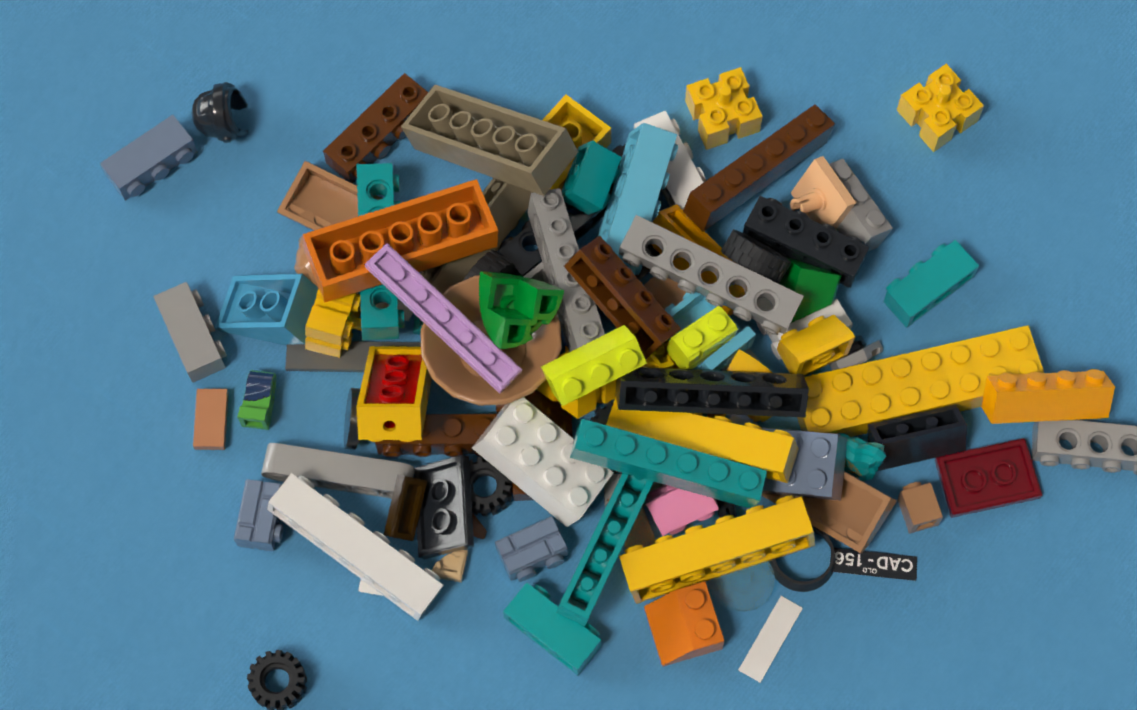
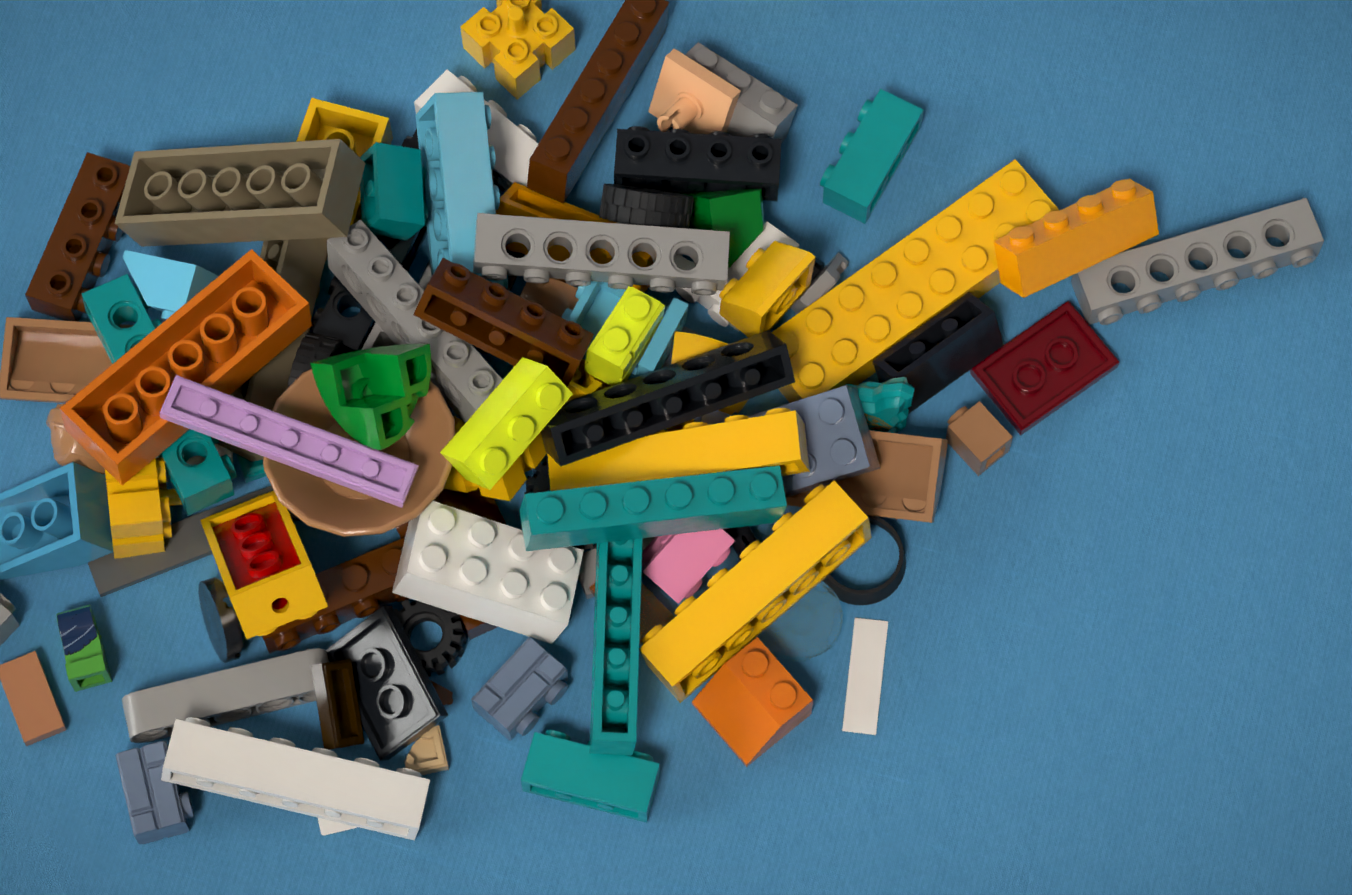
camera: 25 degrees left, 0 degrees up
(413, 178) = (166, 282): none -> medium azure slope
(875, 564) = (953, 530): black sticker -> none

